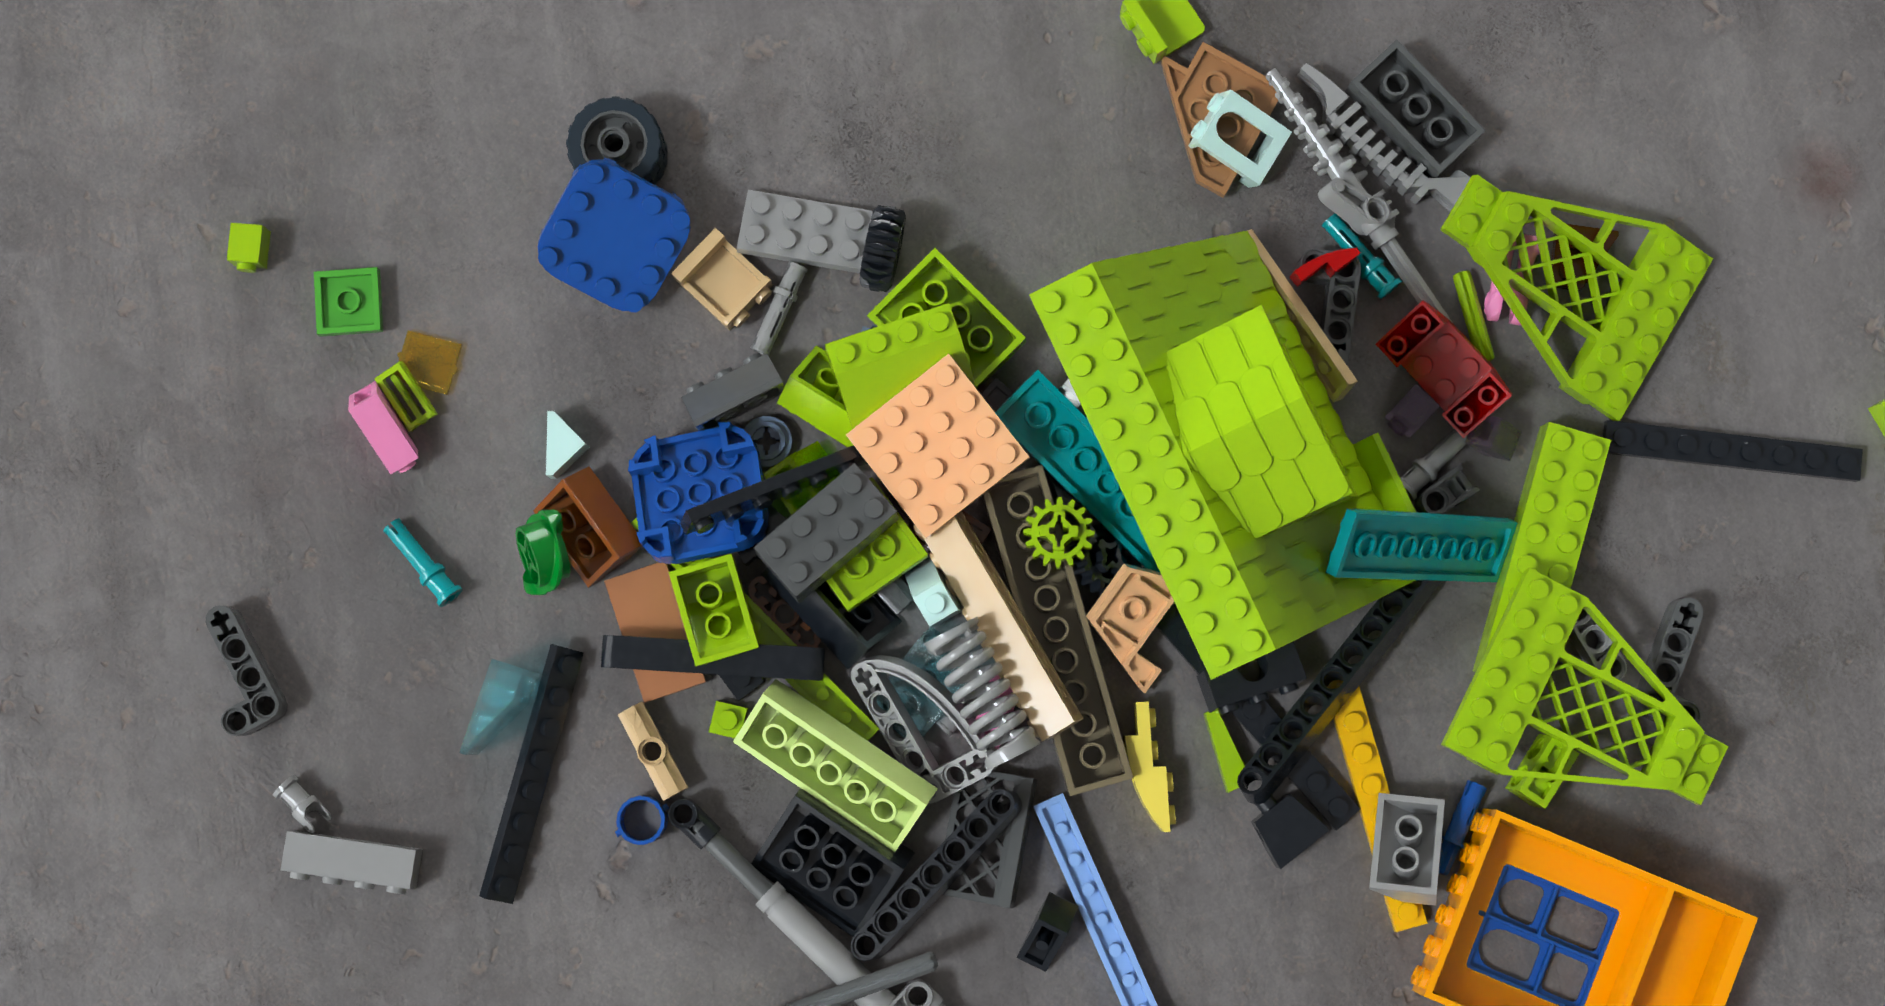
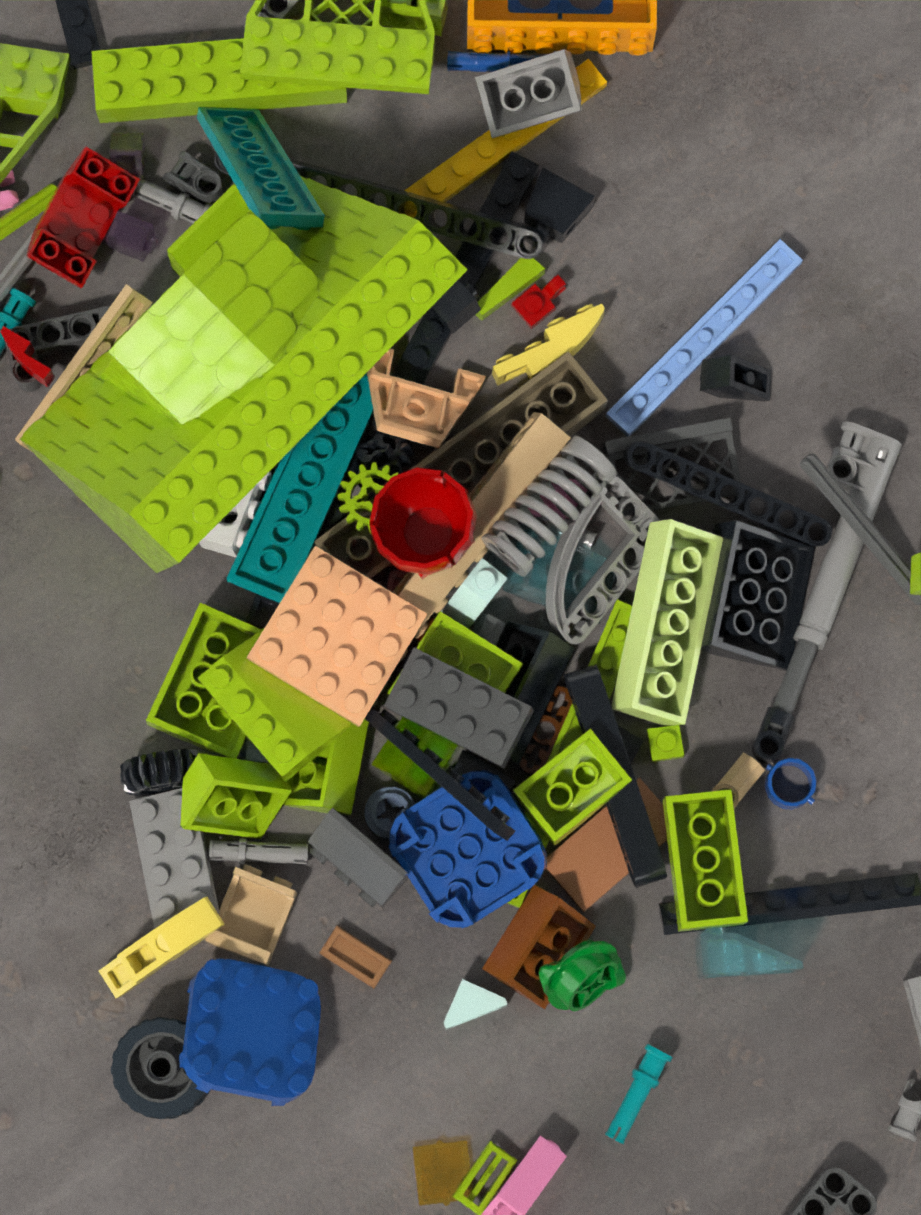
camera: 115 degrees left, 5 degrees down
(595, 704) = (705, 860): none -> lime brick
(649, 359) = (355, 957): none -> medium nougat tile
(724, 187) = (161, 946): none -> light yellow slope
(833, 295) = (231, 796): none -> lime slope
(1004, 559) = (423, 521): none -> red plate
(1197, 771) = (536, 304): none -> red plate

